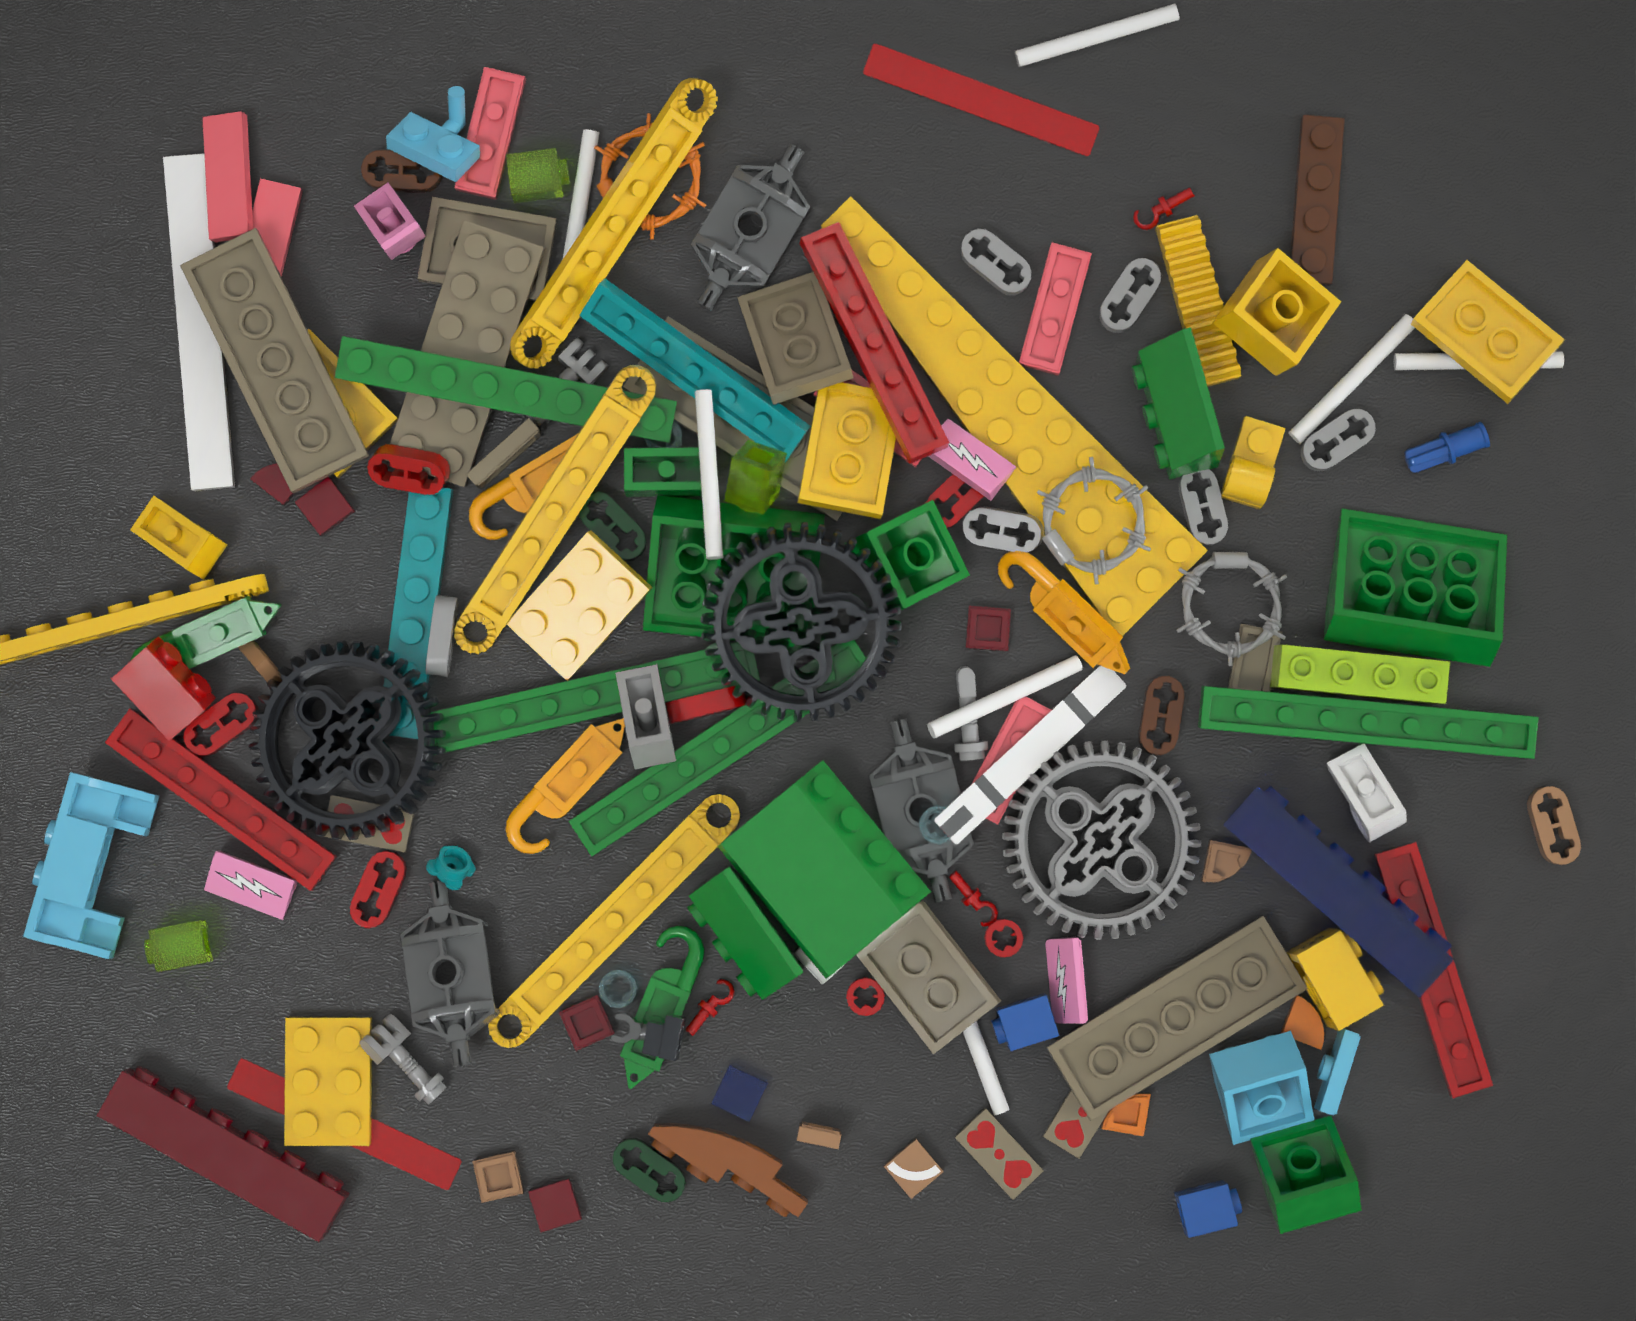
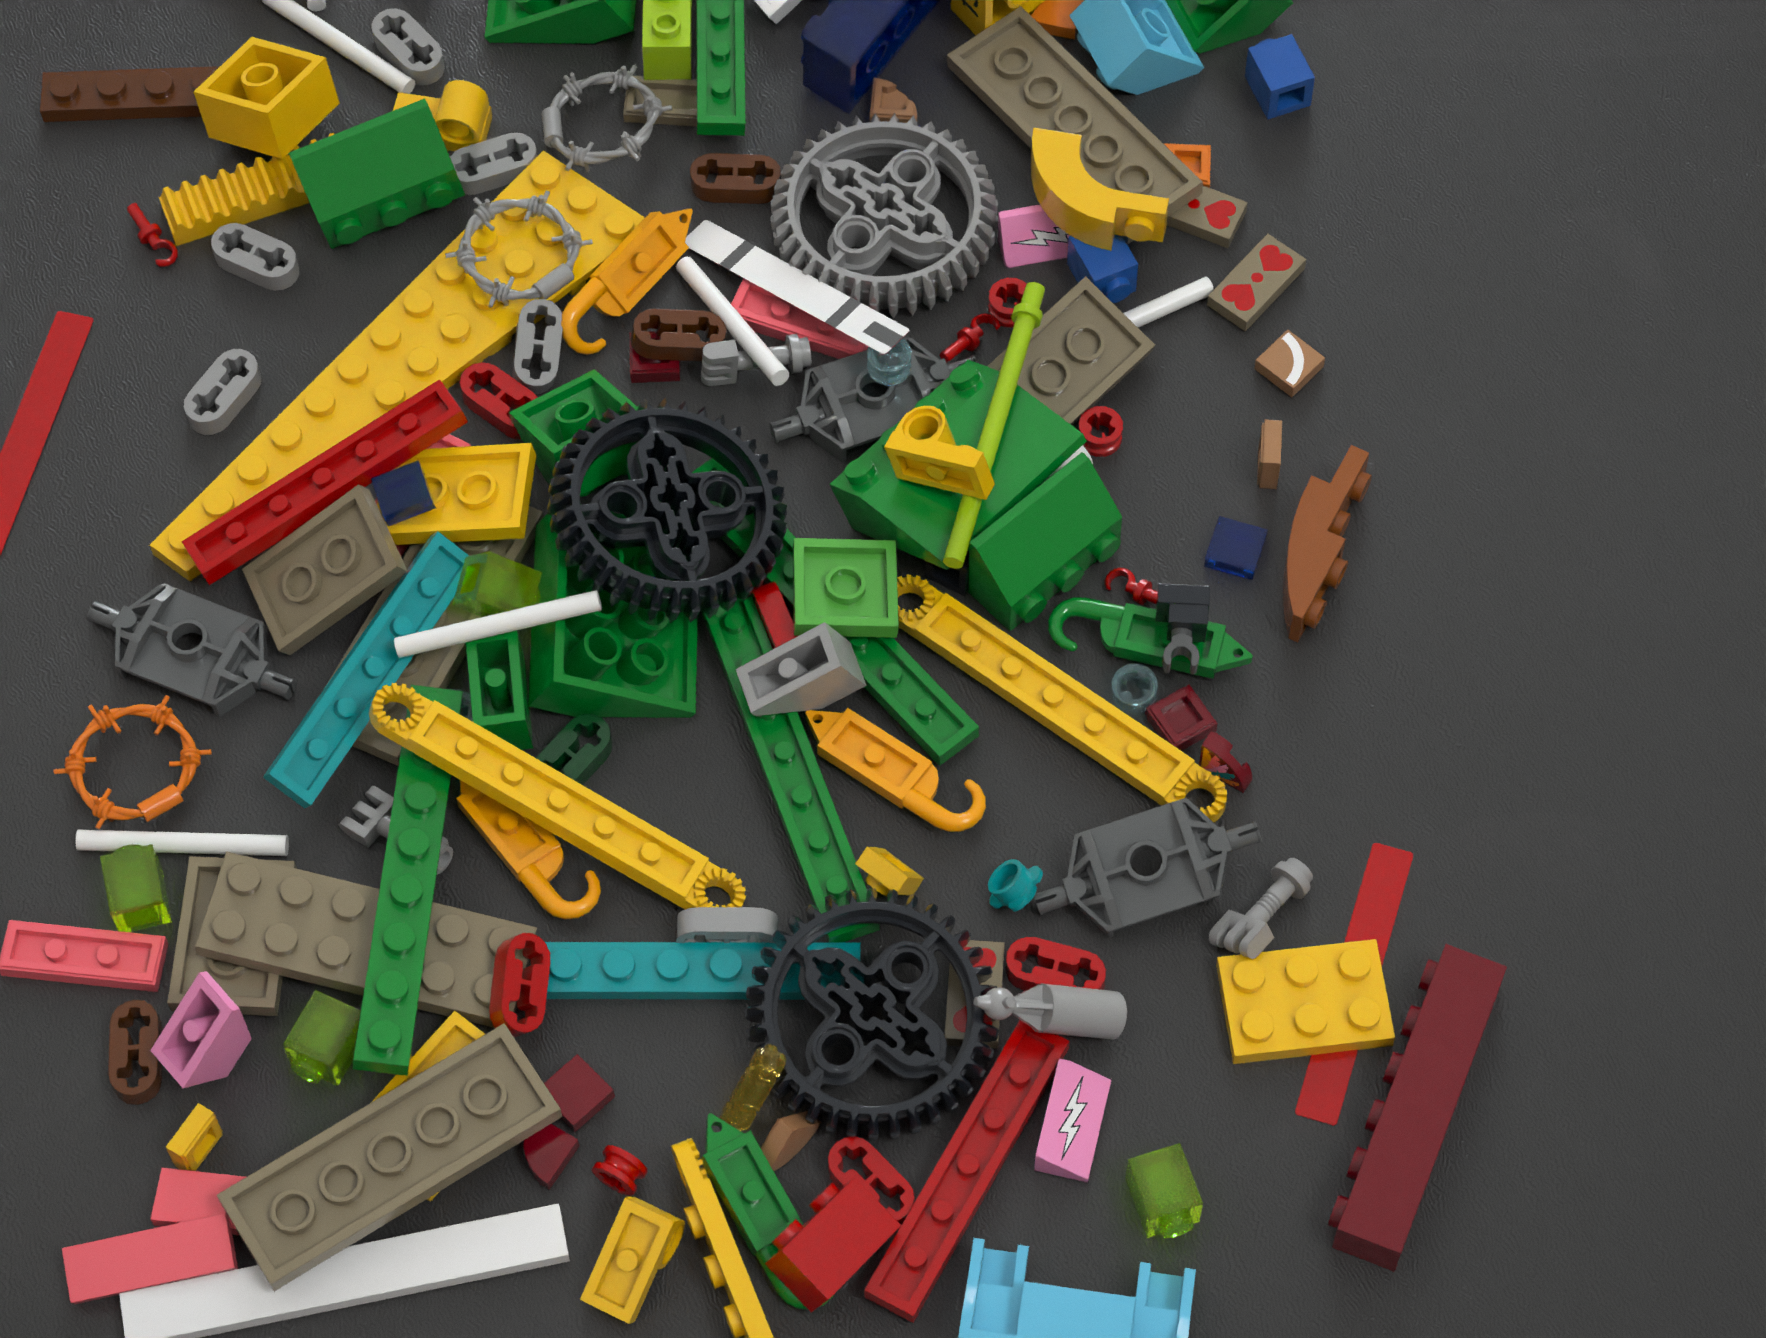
camera: 90 degrees left, 25 degrees down
(252, 534) = (619, 1170): none -> red bush
(295, 641) = (753, 1087): none -> clear yellow axle
(317, 213) = (194, 1139): none -> yellow tile
(328, 886) = (1060, 1009): none -> light grey wheel
(387, 316) = (323, 1039): none -> clear neon green brick
(436, 145) = (98, 1007): medium azure plate -> none
(473, 769) = (888, 872): none -> yellow plate
(498, 1176) = (1385, 795): medium nougat tile -> none
(504, 454) = (490, 882): dark tan tile -> none
(538, 1052) = (1218, 760): none -> dark red tile
(555, 1205) = (1406, 728): dark red tile -> none
(579, 605) = (672, 773): plate -> none
(614, 222) = (194, 782): yellow plate -> none
(643, 1178) = (1335, 627): dark green beam -> none
(723, 762) = (846, 586): none -> bright green plate
(804, 848) = (927, 454): none -> yellow plate
(850, 405) = (403, 493): none -> clear blue tile
(947, 944) = (1026, 318): none -> lime bar
(973, 461) = (469, 369): bright pink slope -> none
(985, 649) = (676, 333): none -> reddish brown beam
(1055, 308) = (274, 329): coral tile -> none
(1069, 1003) = (1084, 205): none -> yellow arch

